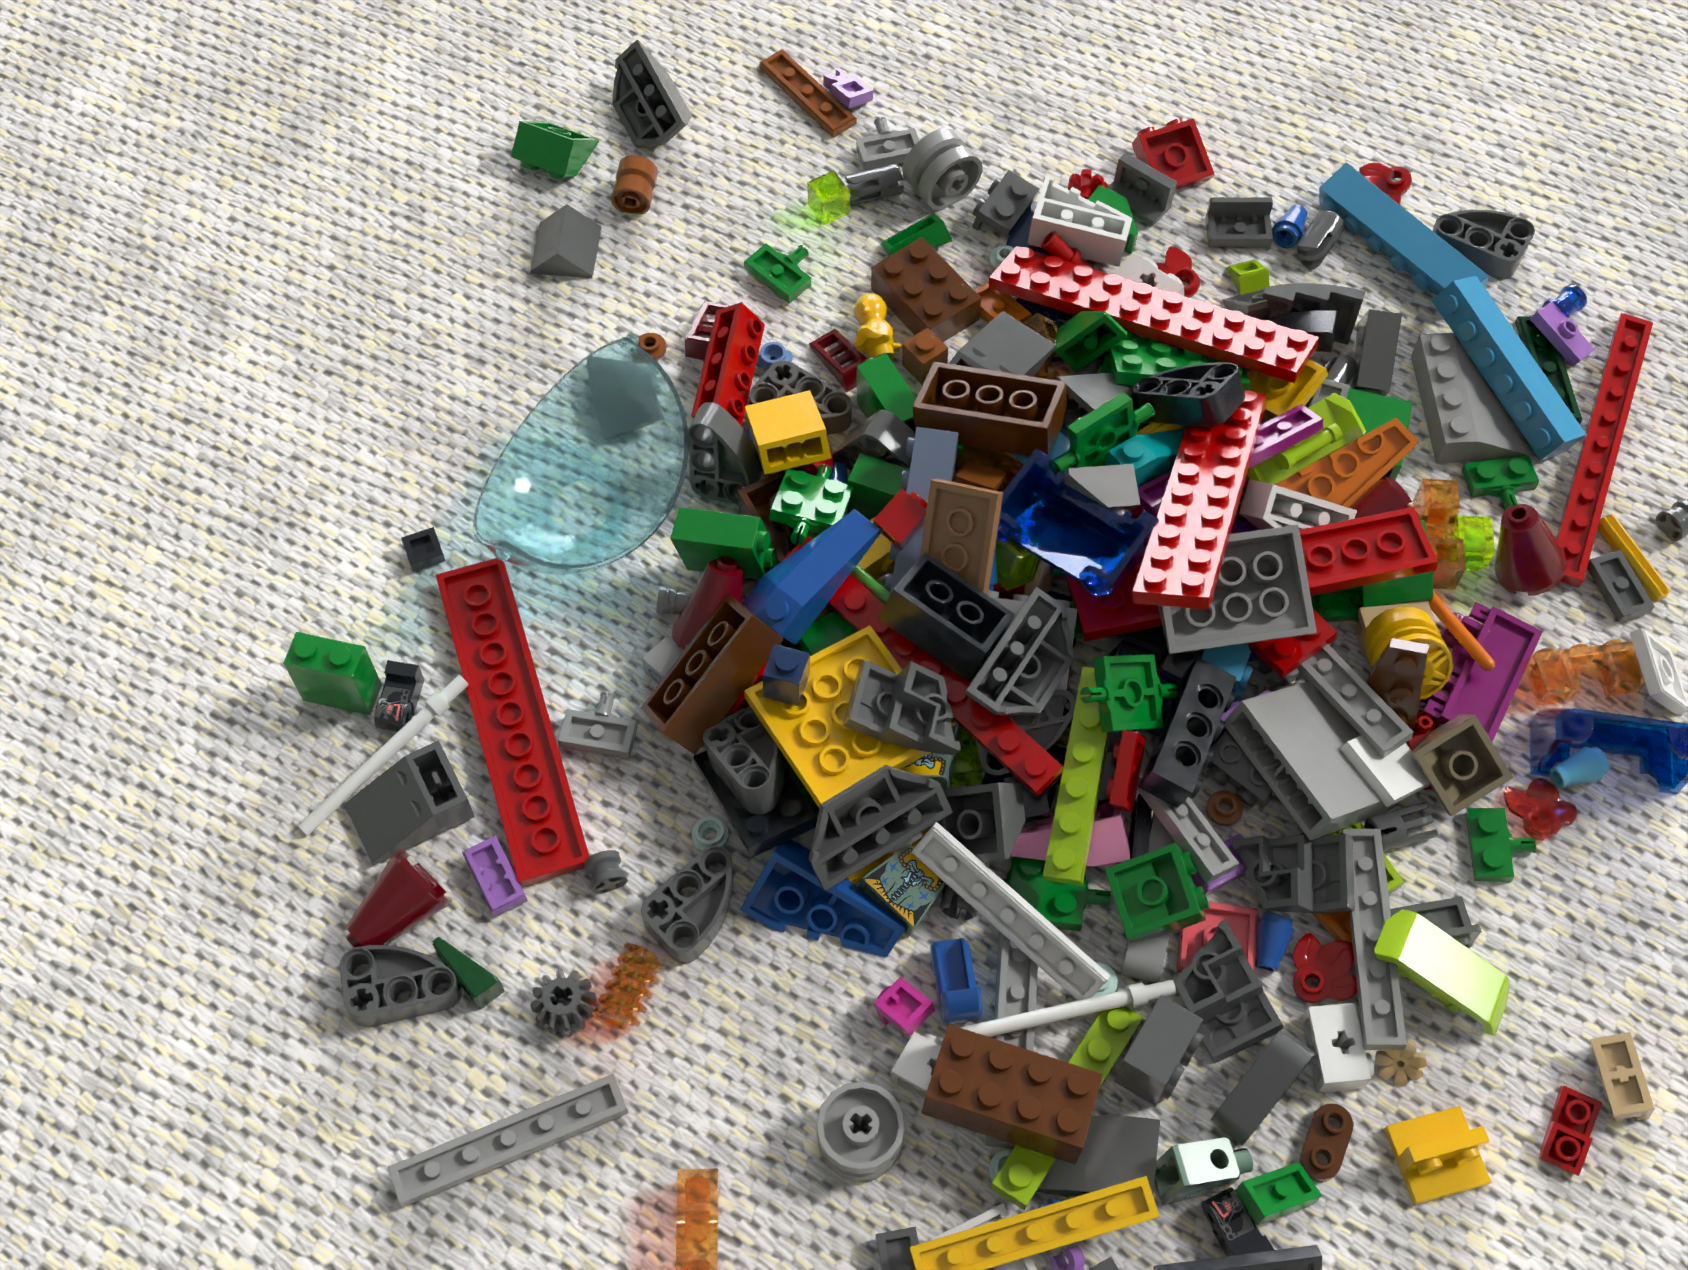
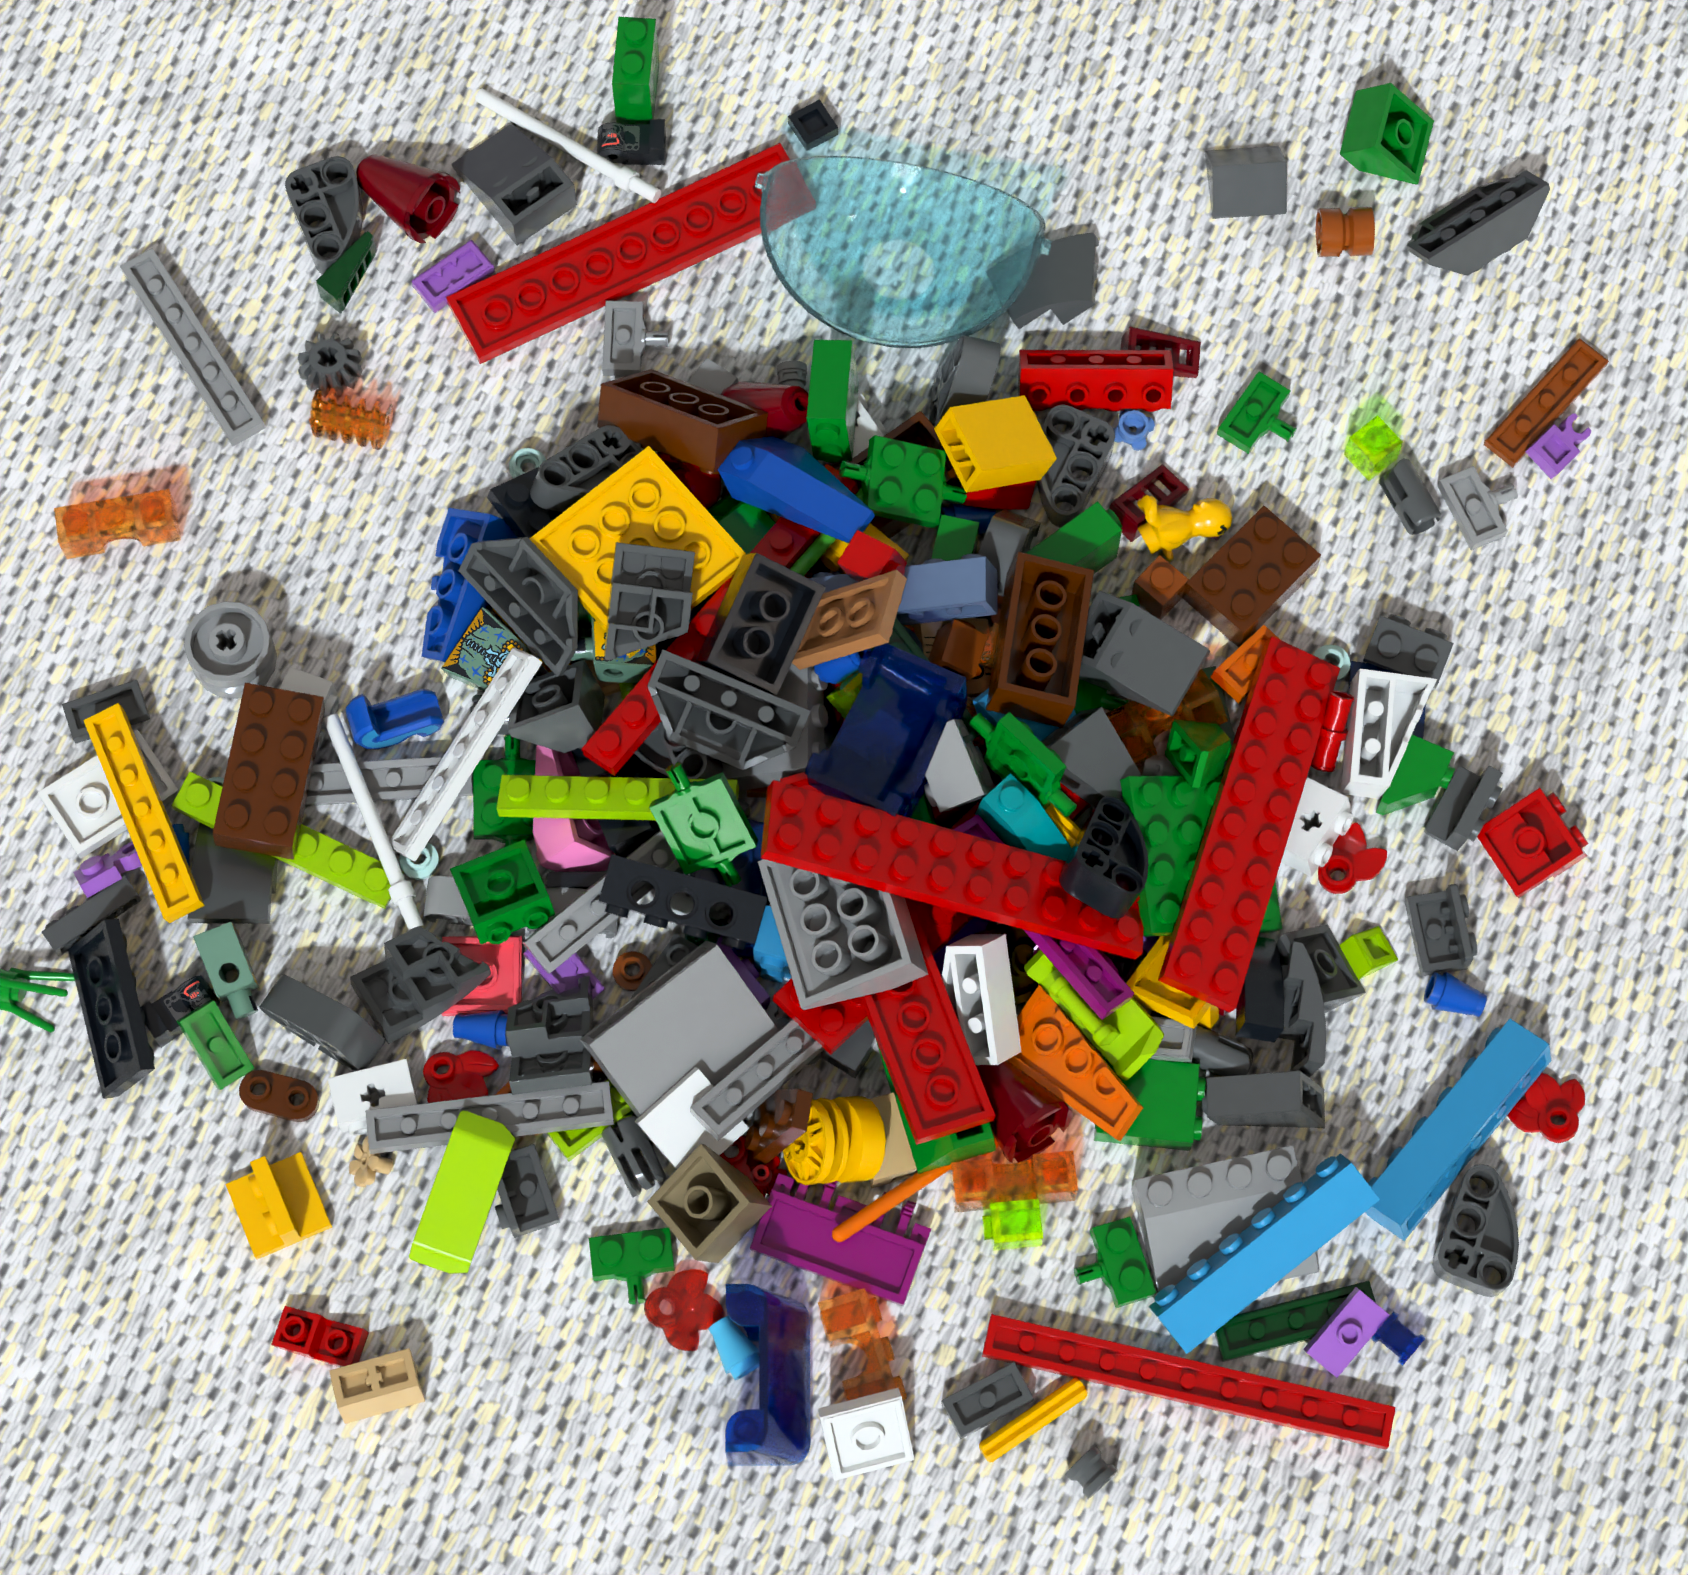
camera: 80 degrees right, 10 degrees up
(605, 871) = (470, 375): dark grey wheel -> none
(656, 351) = (1119, 305): dark orange plate -> none
(691, 916) = (433, 469): dark grey beam -> none
(786, 675) = (660, 476): dark blue brick -> none
(903, 1006) = (359, 670): dark pink bracket -> none
(930, 228) = (1340, 561): green slope -> none
(942, 168) = (1434, 565): light grey wheel -> none
(1086, 182) = (1455, 742): red plant -> none
(1123, 786) = (623, 839): red plate -> none
(1162, 1044) = (339, 915): dark grey brick -> none
(1319, 238) = (1437, 1029): dark grey arm -> none
(1528, 553) = (997, 1280): dark red cone -> none

